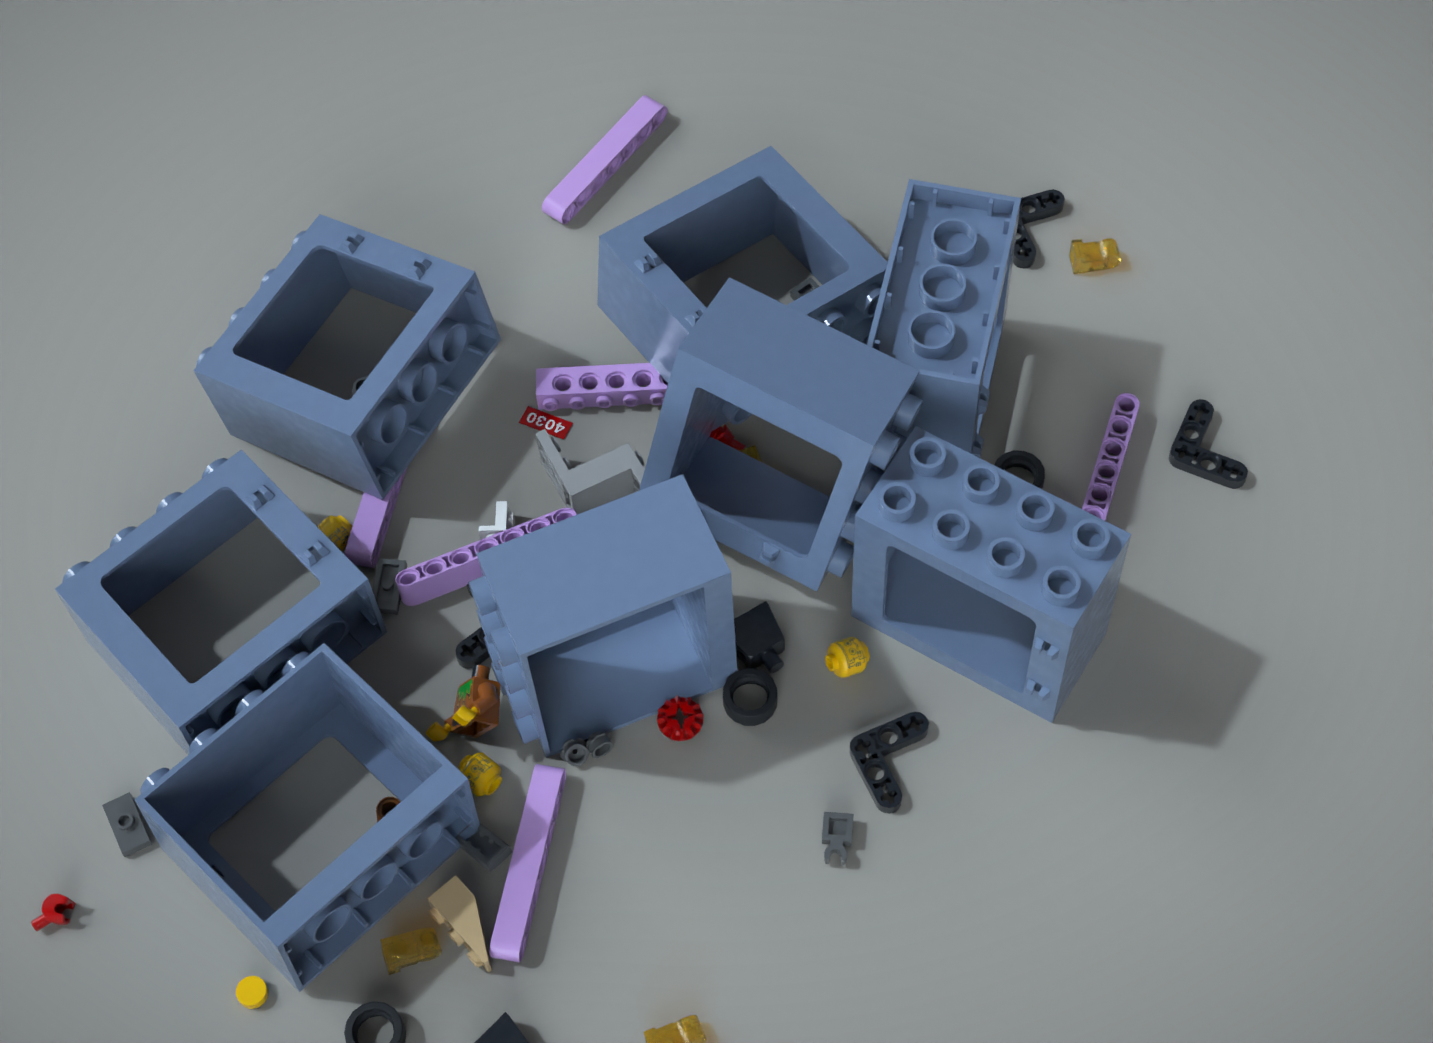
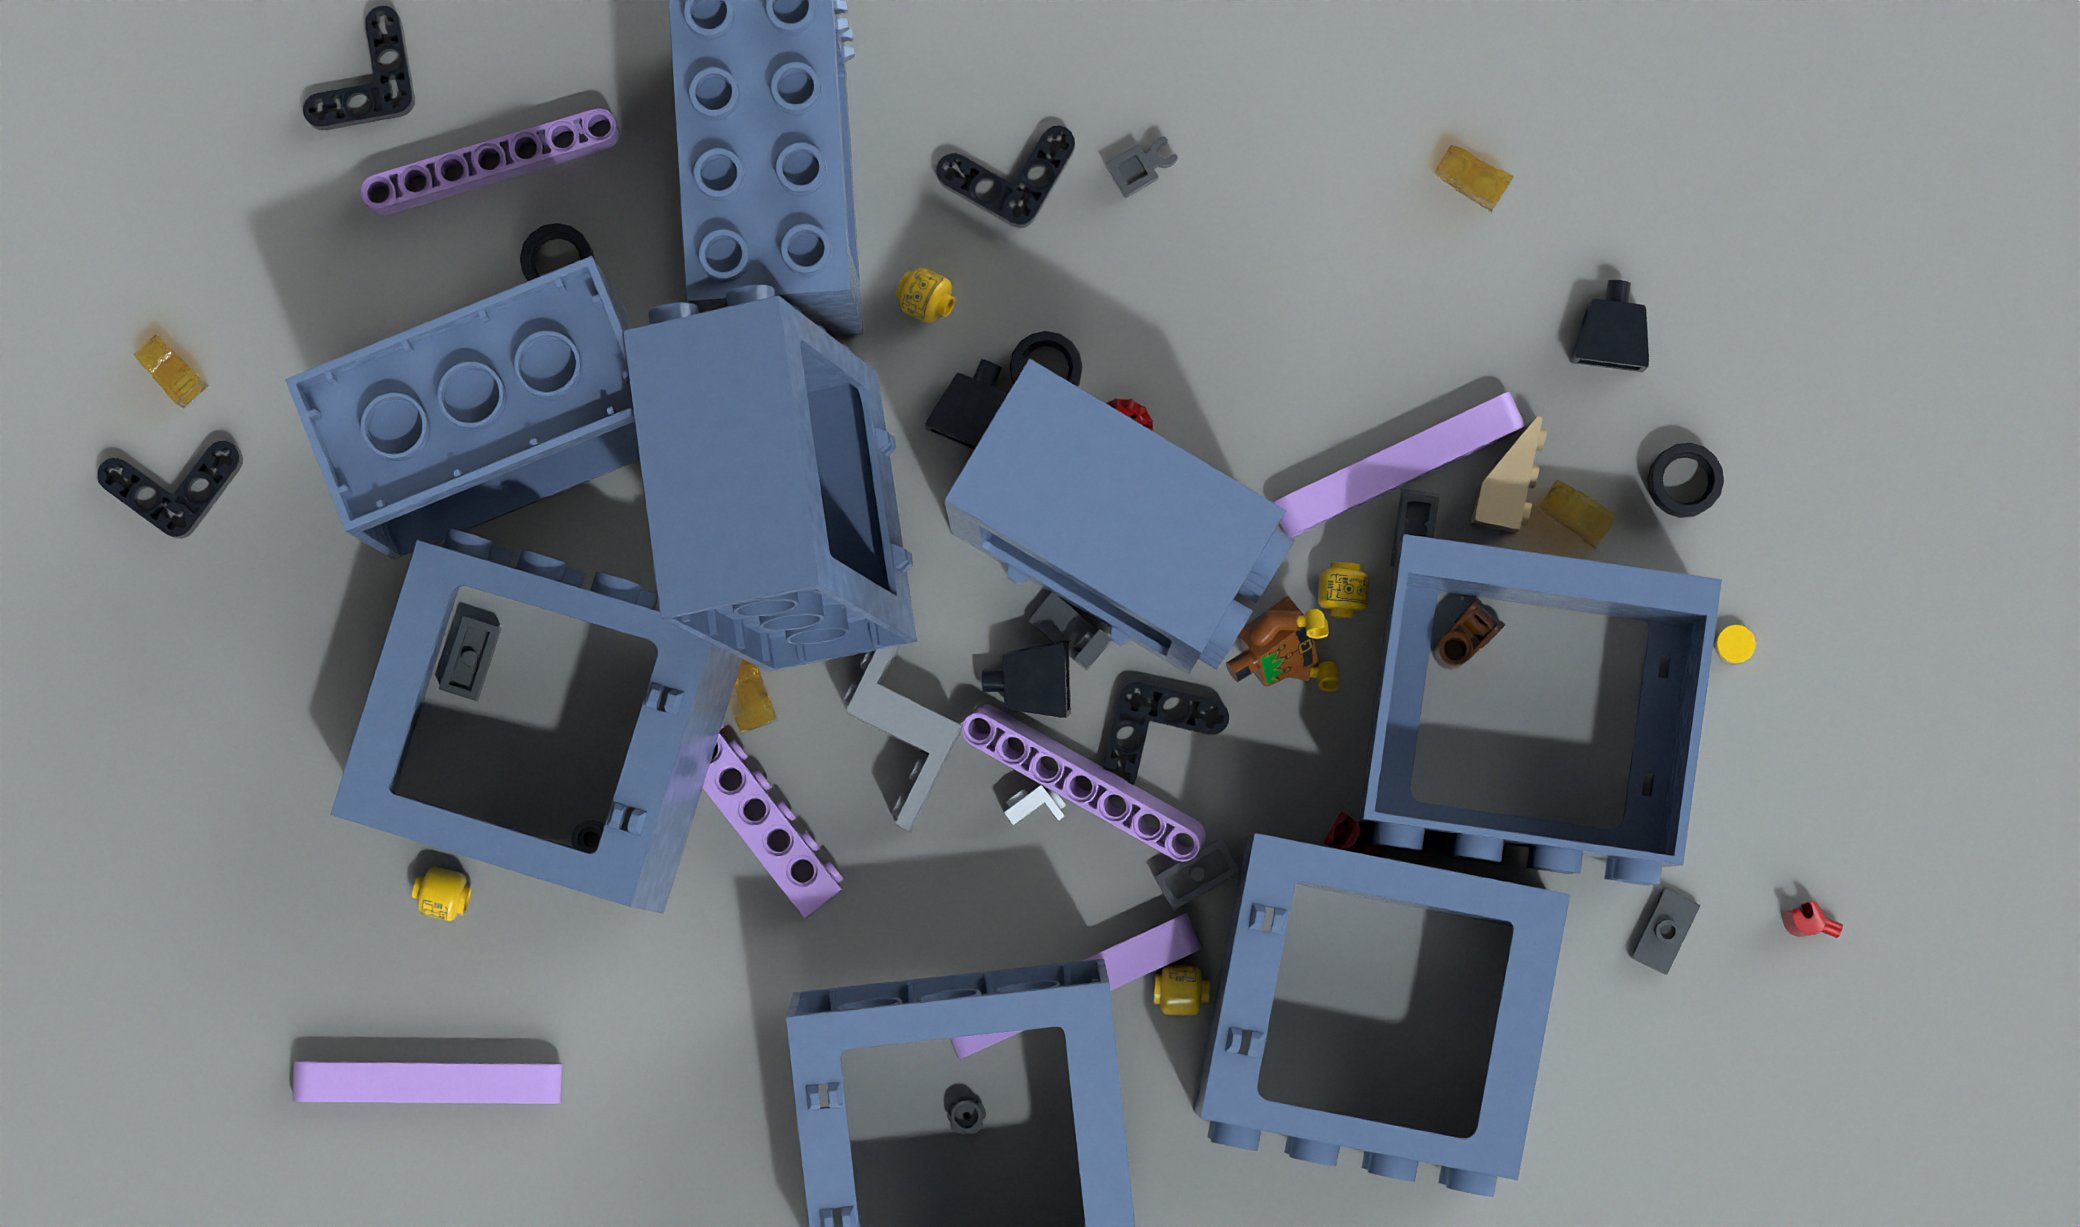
camera: 130 degrees left, 25 degrees up
(541, 420) = (855, 866): red sticker -> none

